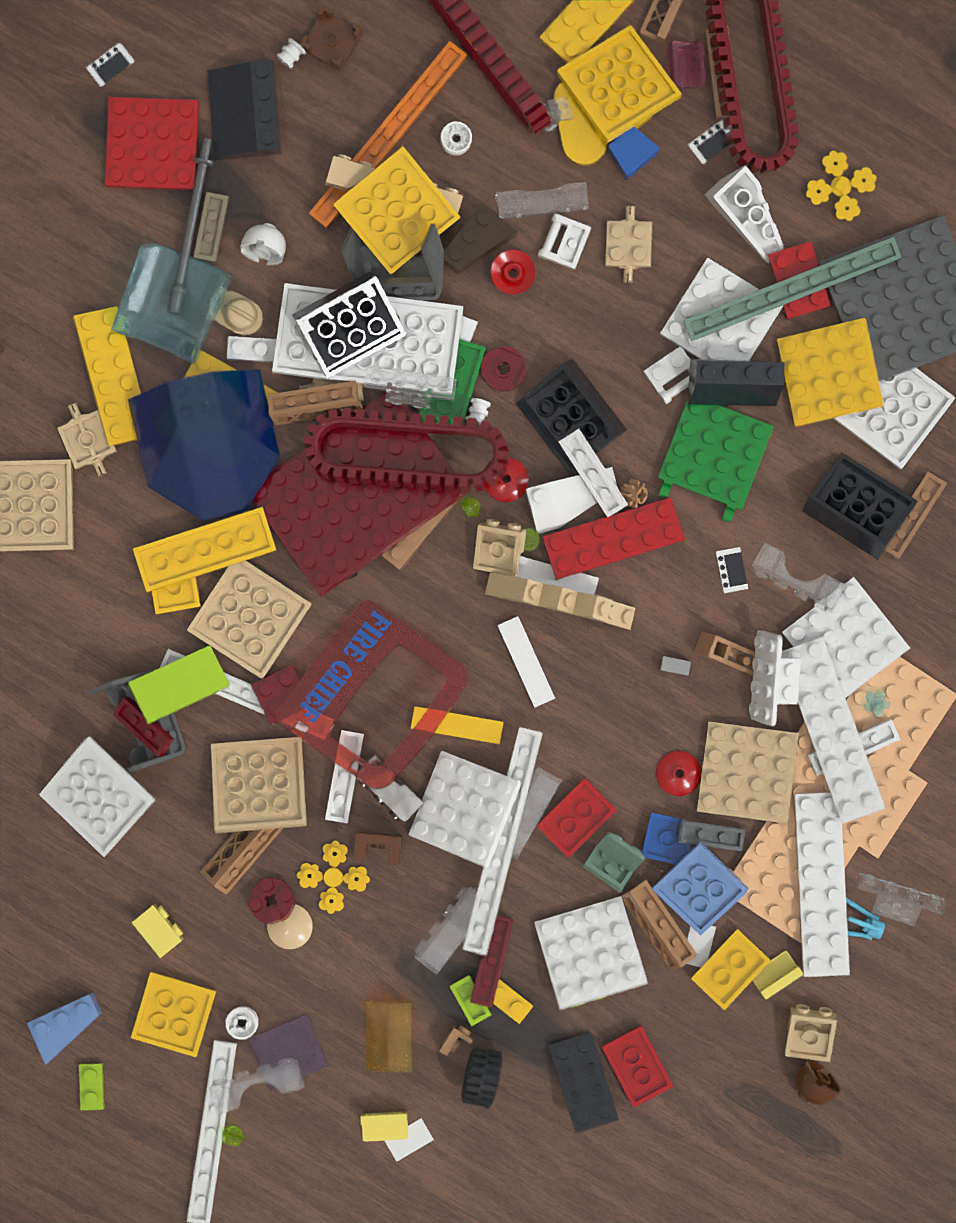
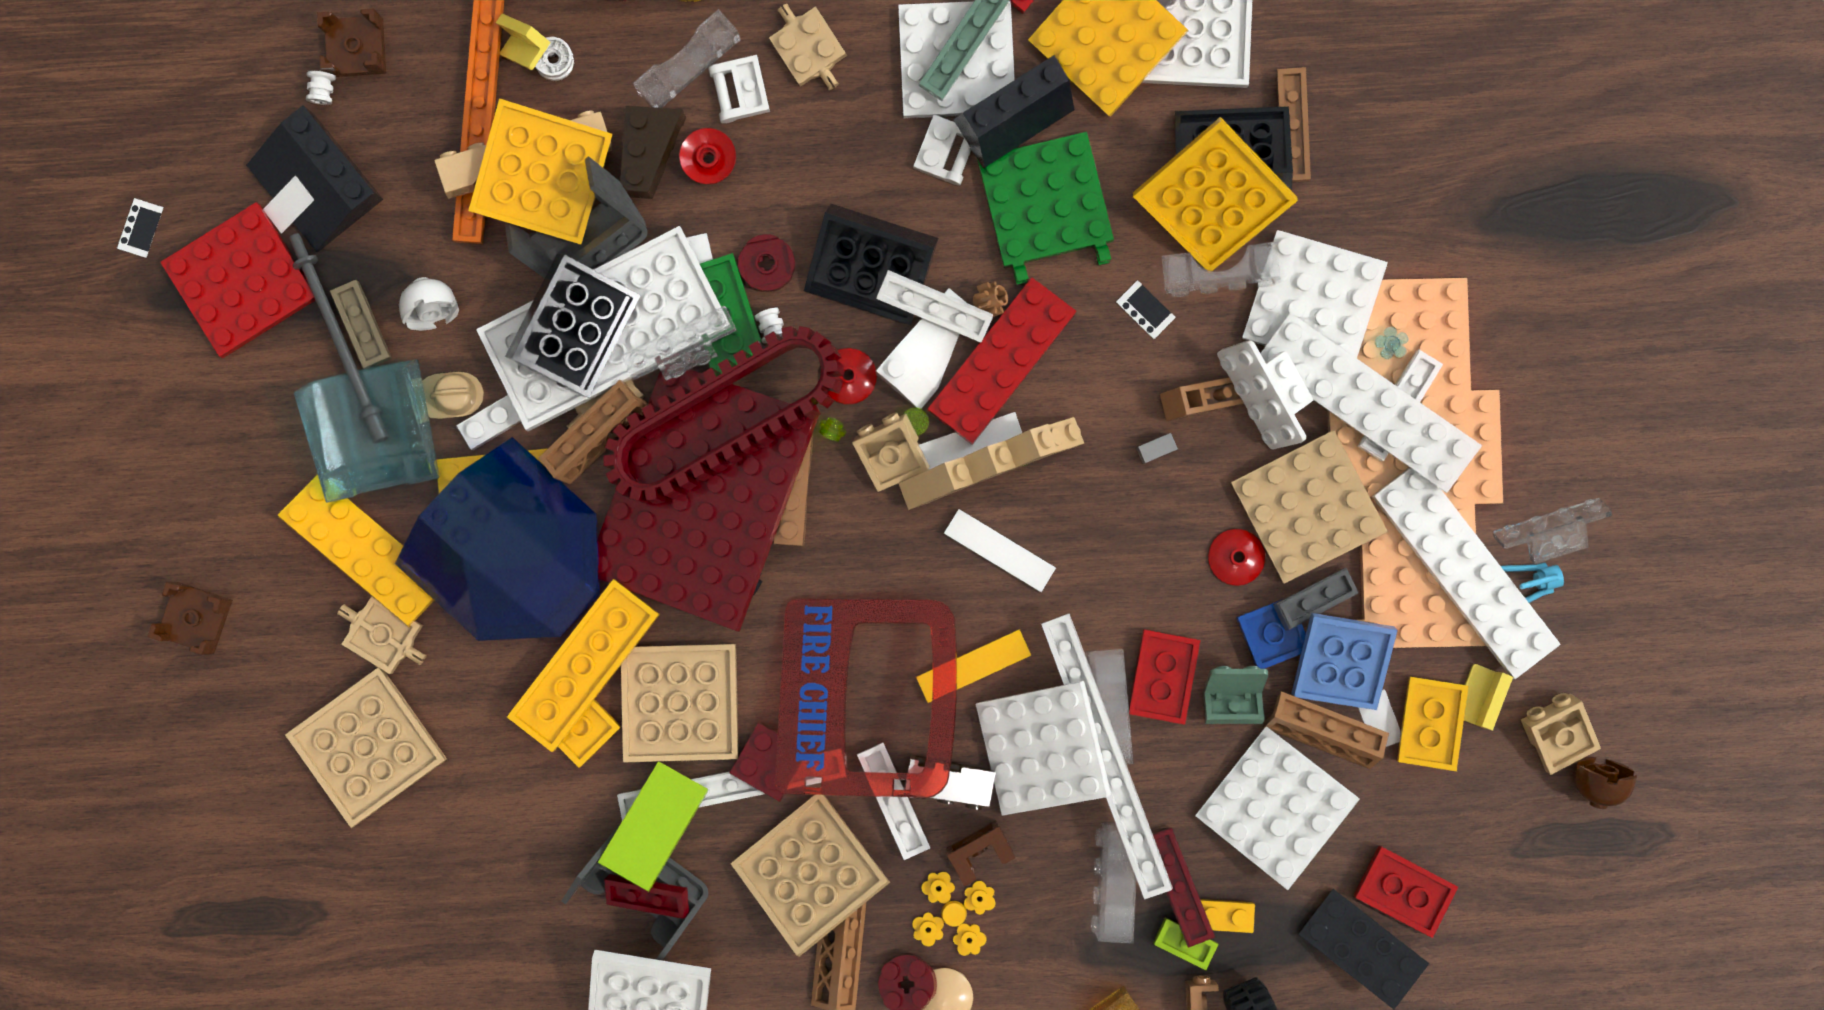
camera: 35 degrees left, 0 degrees up
(217, 116) = (288, 204): none -> white sticker
(442, 116) = (525, 43): none -> light yellow panel
(825, 526) = (1215, 195): none -> yellow plate

